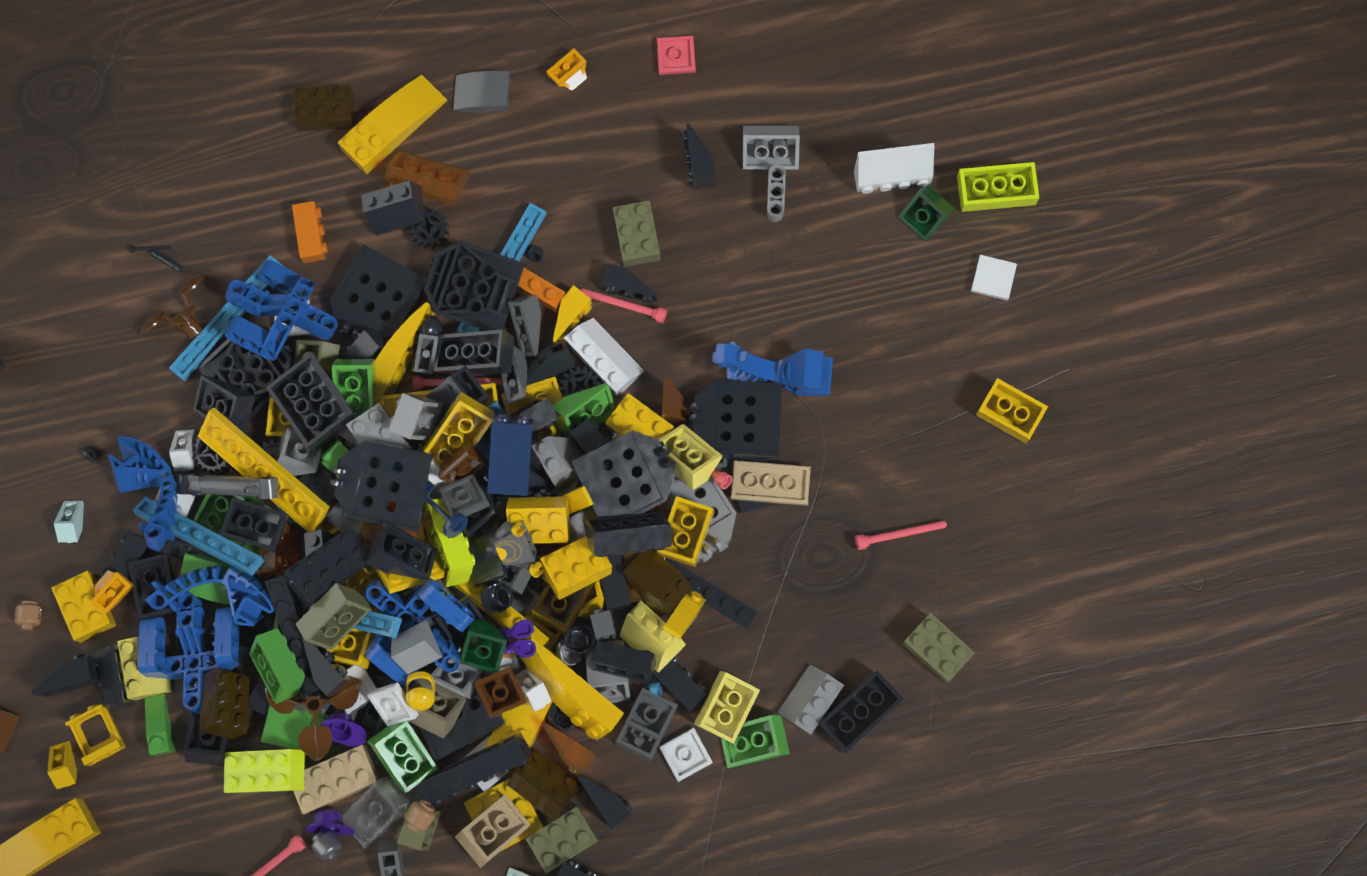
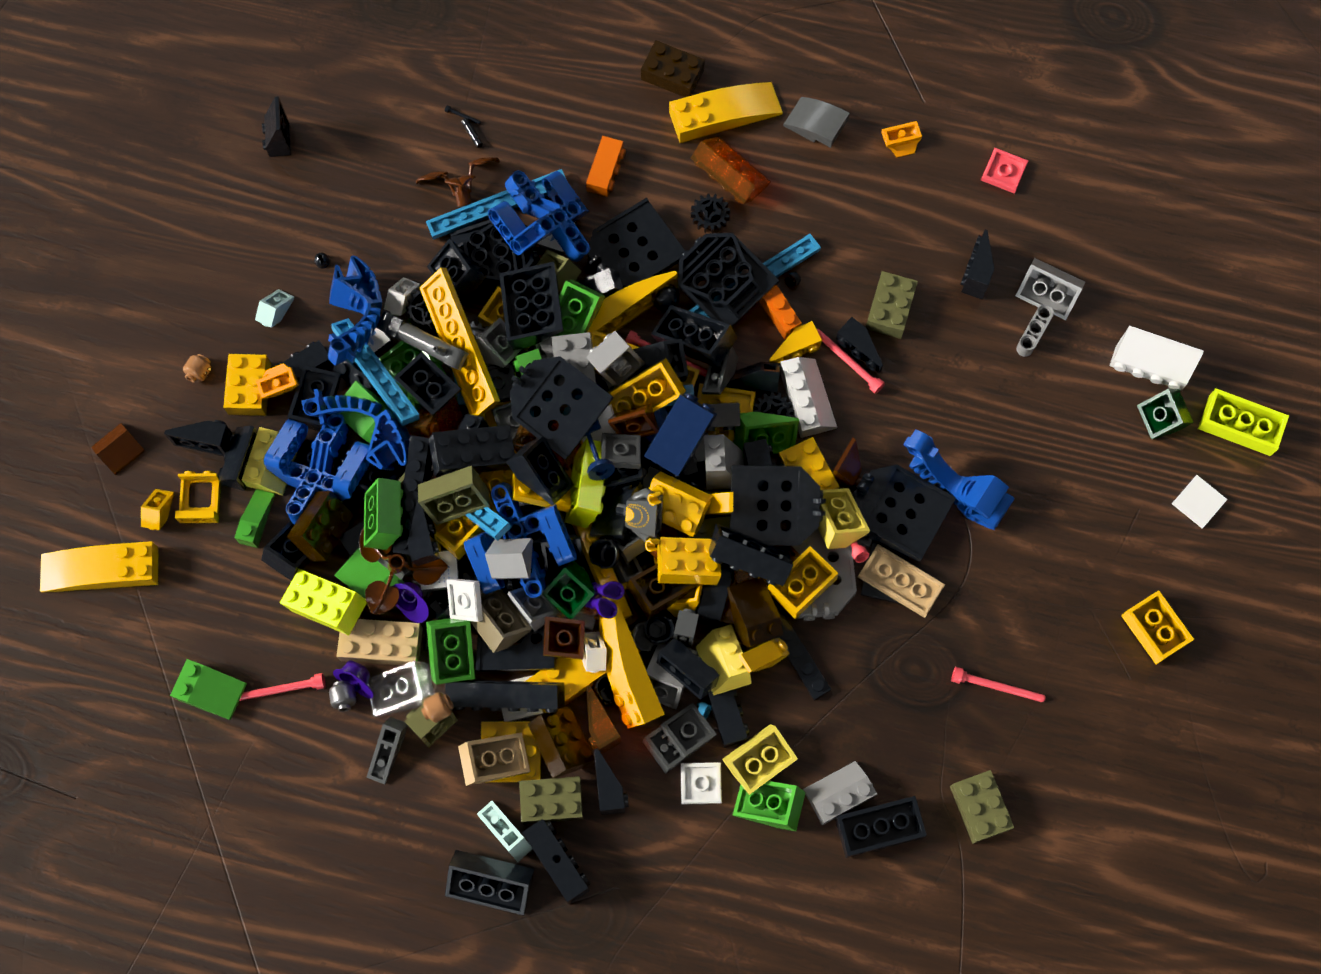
camera: 25 degrees right, 5 degrees down
(394, 207) = (689, 179): black slope -> none
(420, 698) = (492, 605): yellow helmet -> none
(424, 354) = (650, 315): dark grey slope -> none
(526, 321) = (755, 330): dark grey slope -> none

